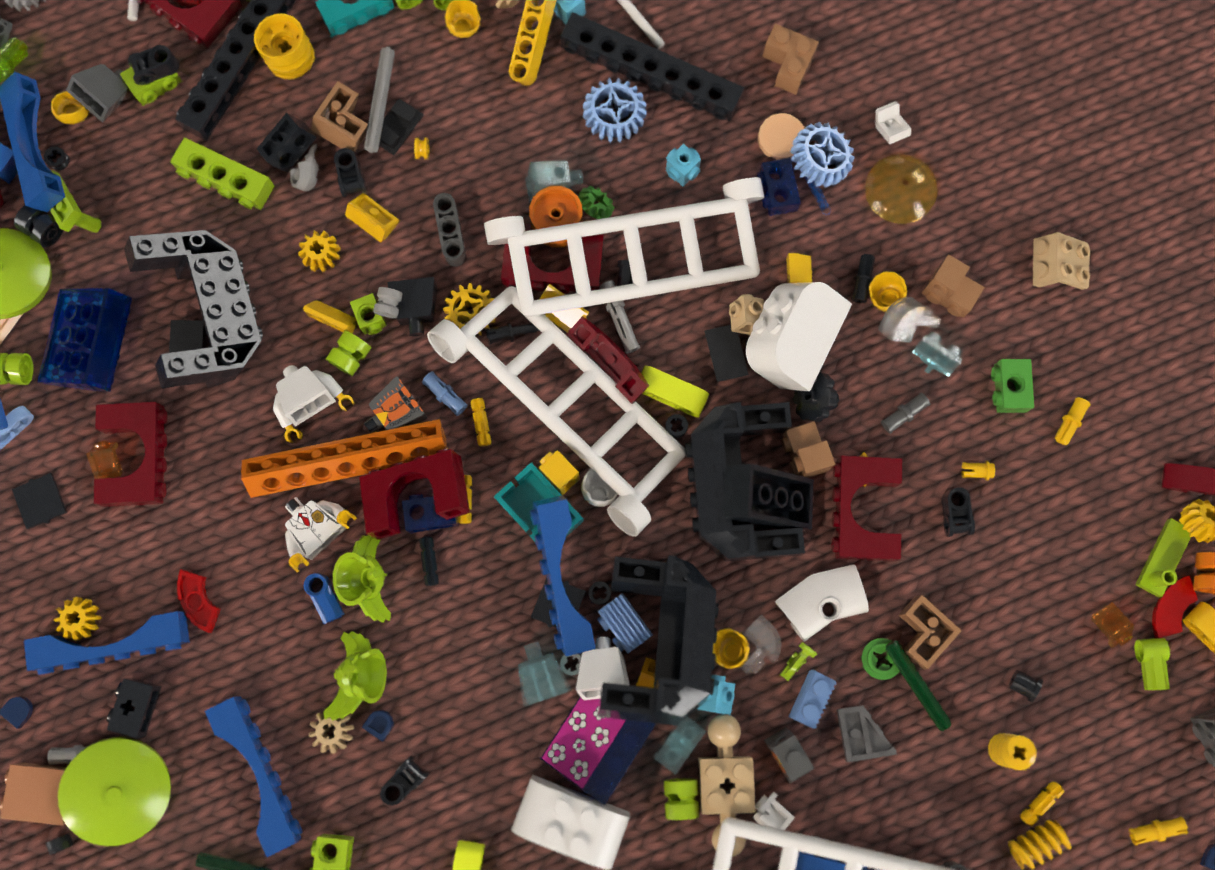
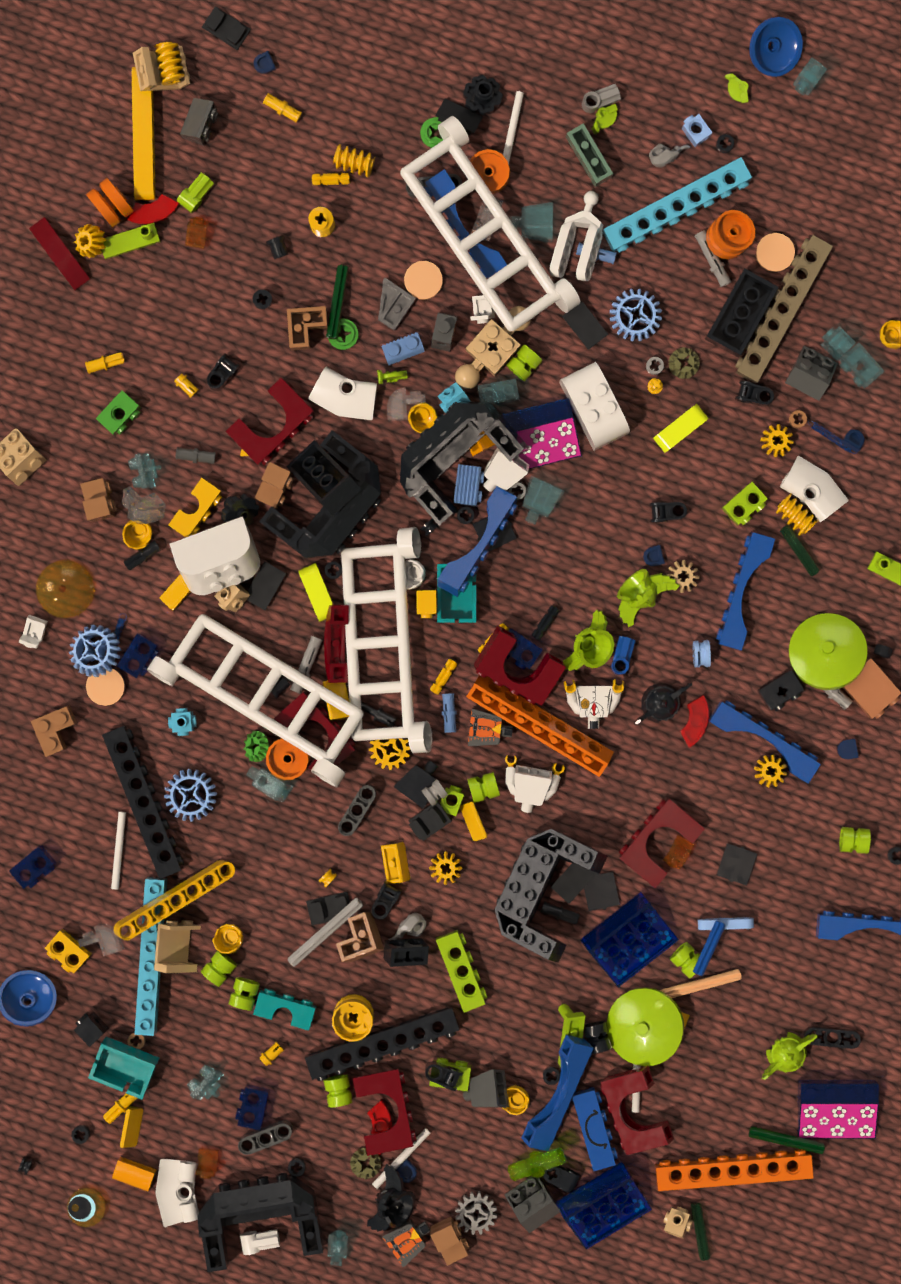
camera: 140 degrees left, 10 degrees up
(144, 358) = (601, 892): none -> black piece
(173, 306) = (560, 913): none -> black axle
(244, 671) = (701, 653): none -> light blue wheel
(245, 587) = (661, 702): none -> black helmet
(372, 274) = (429, 821): none -> black piece
(624, 548) = (429, 527): none -> black bush
(856, 788) = (423, 280): none -> light nougat tile
(857, 385) = (188, 523): none -> yellow arch
(995, 614) = (256, 298): none -> black bush

